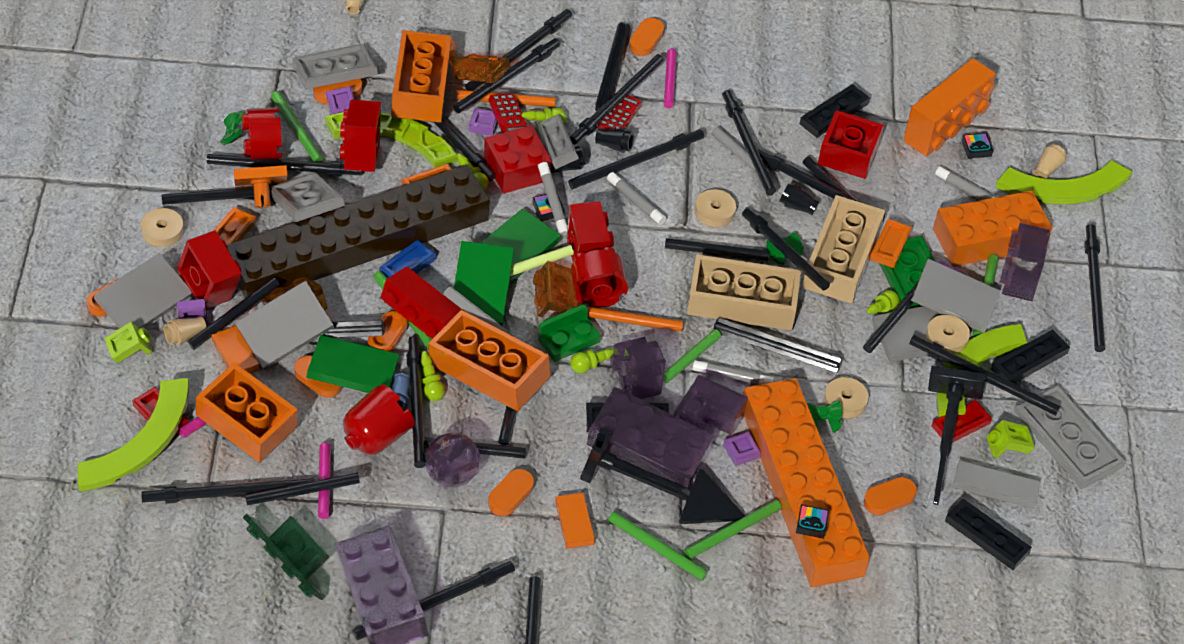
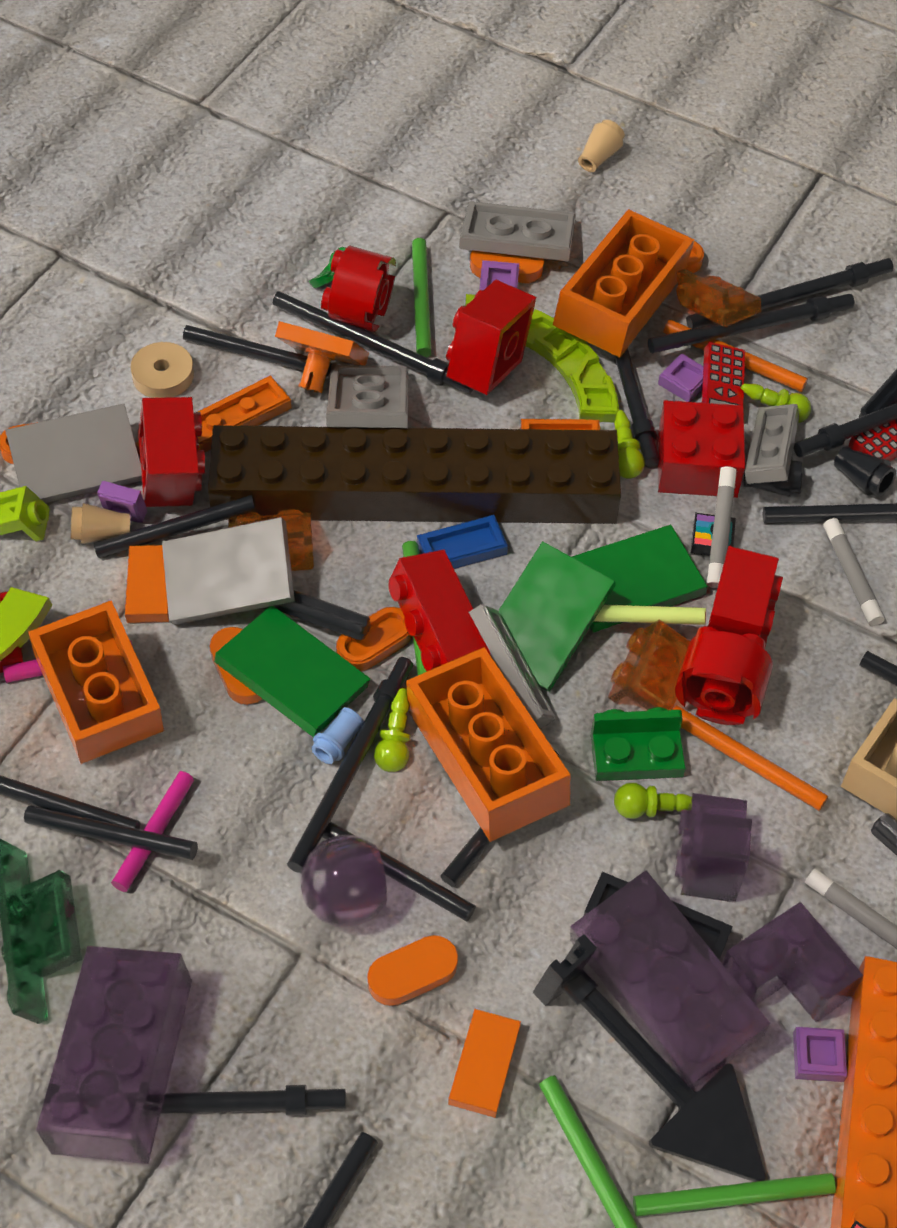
camera: 30 degrees right, 5 degrees up
(376, 421) = (263, 774): red cylinder -> none
(691, 355) = (813, 858): bright green bar -> none

